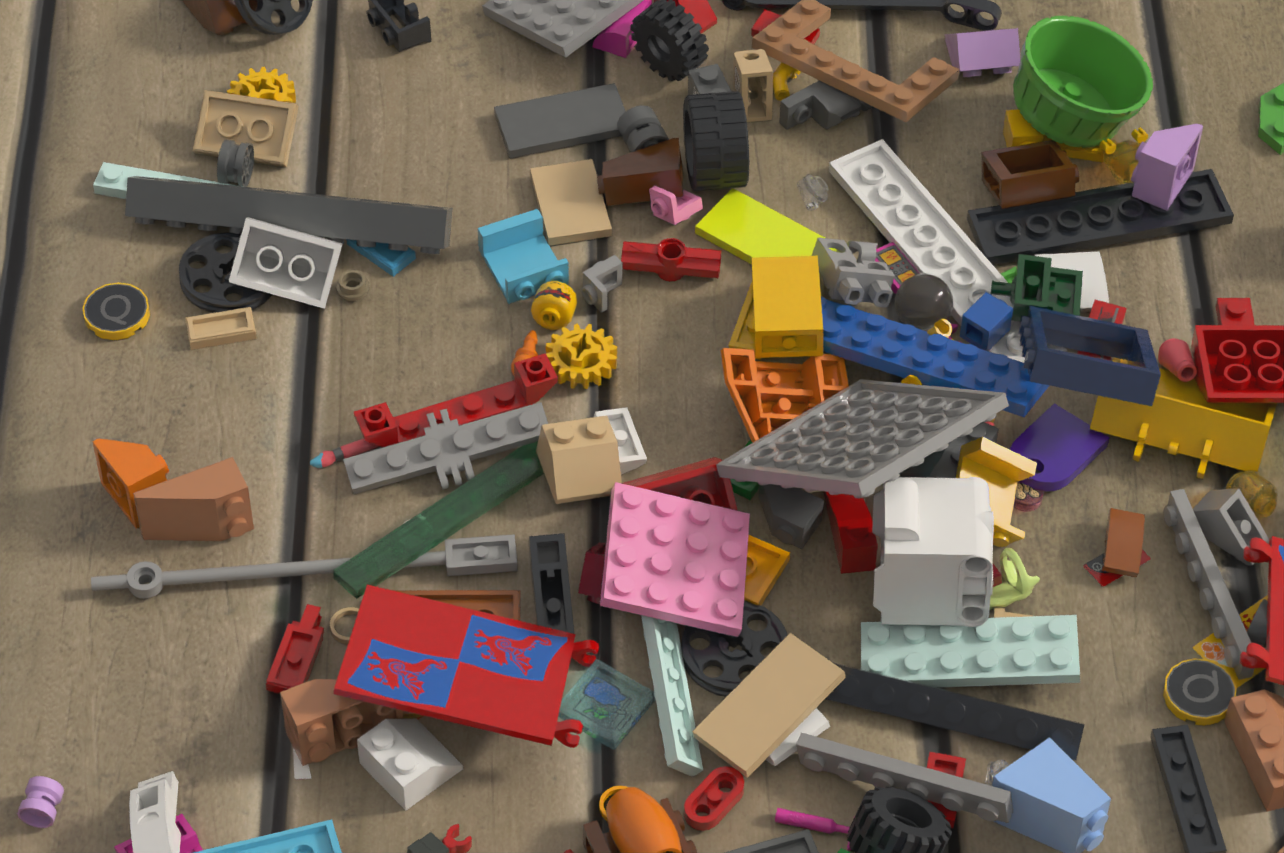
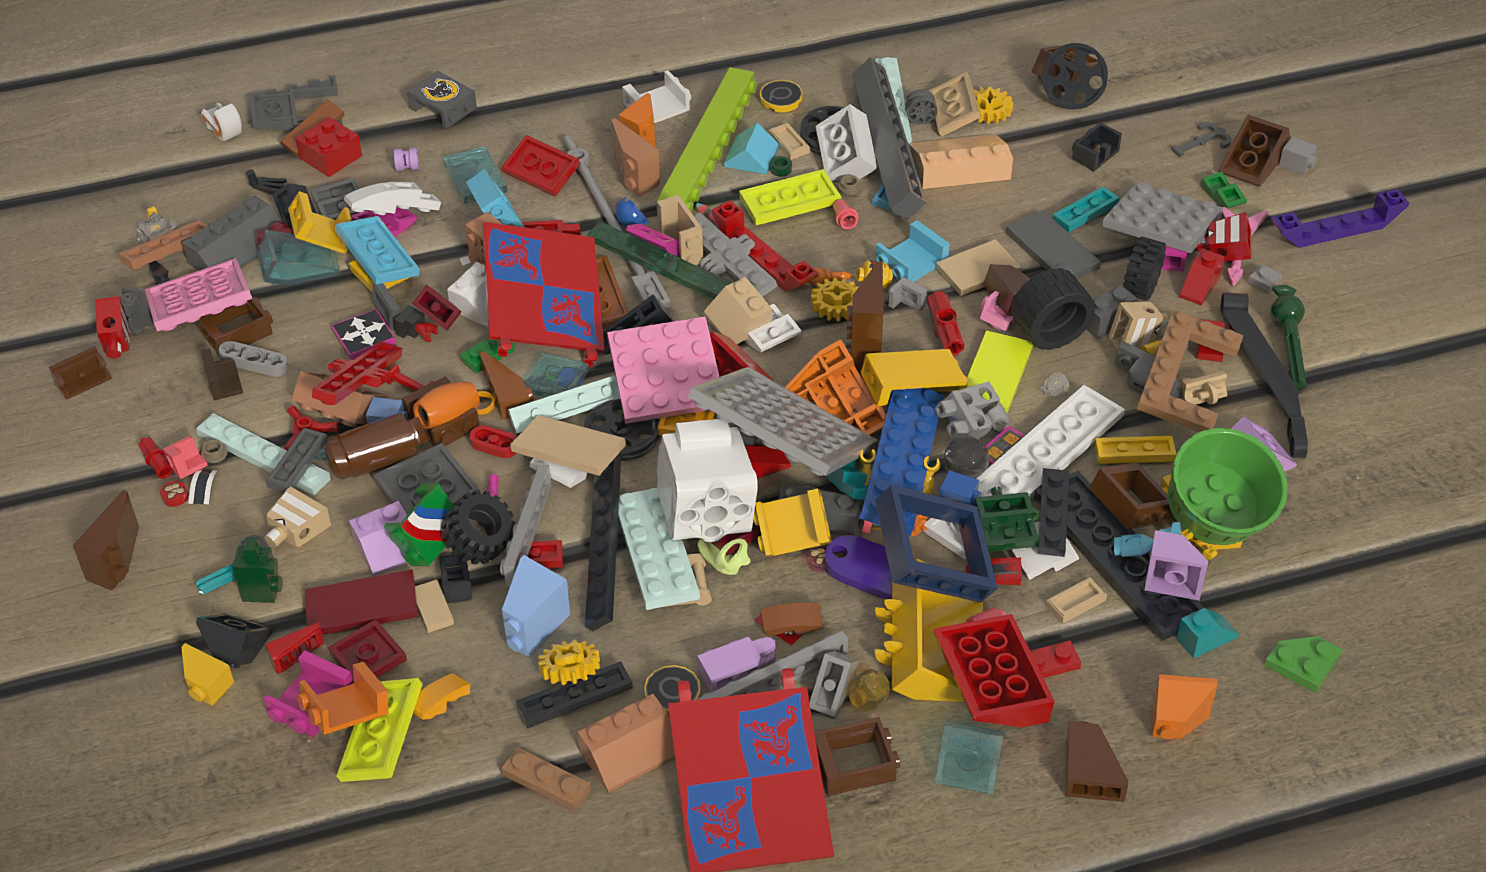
camera: 75 degrees right, 5 degrees down
(54, 453) = (666, 100): none -> white panel
(112, 721) = (468, 164): none -> clear light blue plate
(142, 628) = (540, 165): none -> red tile
(192, 417) = (710, 137): none -> lime brick
(224, 376) = (752, 150): none -> medium azure slope
(236, 690) = (492, 199): none -> medium azure window
(271, 350) = (780, 166): none -> dark green tile
(314, 542) = (629, 214): none -> blue hair
(349, 354) = (789, 197): none -> neon yellow plate
(354, 148) = (962, 161): none -> light nougat slope
(389, 477) = (678, 221): none -> tan panel
(390, 516) = (654, 238): none -> dark pink slope
(412, 305) = (845, 215): none -> coral cone
(431, 809) = (437, 307): none -> dark red slope
(511, 66) = (1086, 209): none -> teal plate
(522, 777) = (472, 359): none -> green plate
(620, 760) = (504, 385): none -> dark orange slope
(693, 313) = (866, 318): none -> reddish brown slope
(873, 58) = (1204, 388): none -> tan hips
(945, 152) = (1135, 449): none -> yellow plate
(1011, 241) = (1053, 512): none -> black plate
(1112, 189) = (1139, 543): none -> medium azure piece
(1142, 782) = (569, 662): none -> yellow gear
(1153, 277) = (1076, 600): none -> tan tile
(1181, 616) = (734, 661): none -> lavender hinge
(1238, 181) = (1204, 632): none -> teal slope

